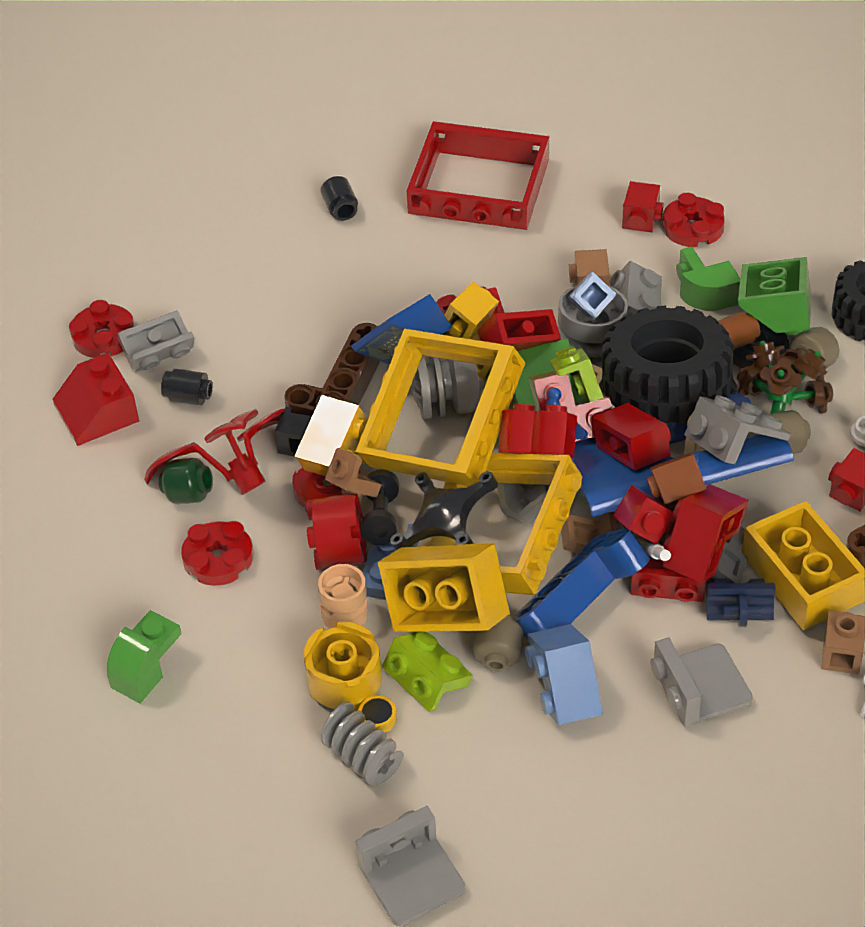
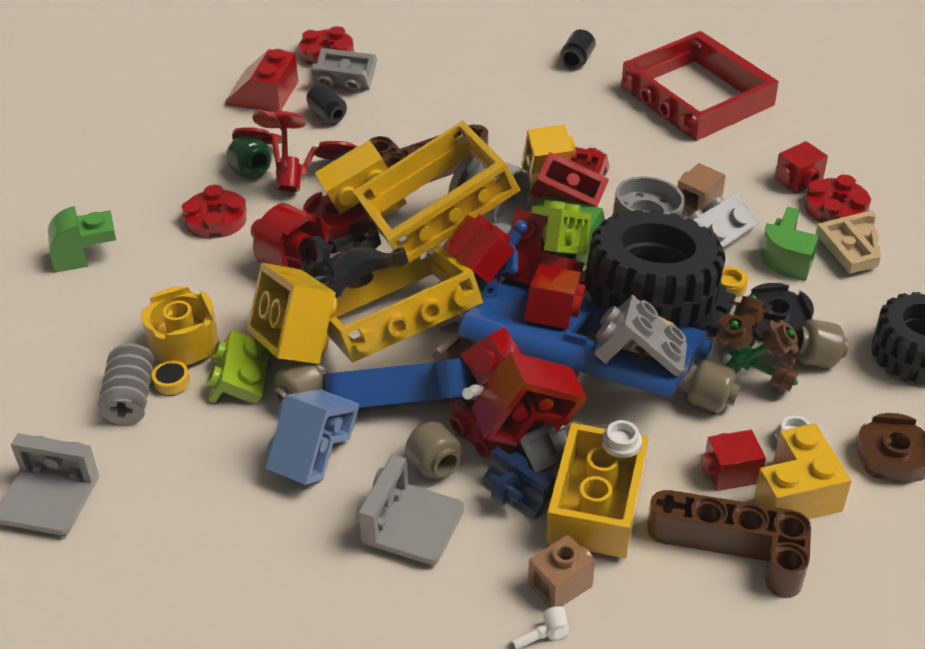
camera: 40 degrees right, 5 degrees down
(343, 595) = (237, 283): light nougat wheel -> none
(344, 473) = (331, 211): medium nougat bracket -> none
(420, 316) = (500, 132): blue slope -> none
(591, 296) = (653, 187): medium blue brick -> none
(658, 619) = (433, 450): none -> dark tan head
(676, 478) = (537, 338): dark orange brick -> none
(741, 246) = (852, 241): none -> tan wing
(741, 328) = (755, 282): dark orange brick -> none
(777, 294) = (828, 281): bright green slope -> none
(800, 514) = (622, 439): none -> white plate

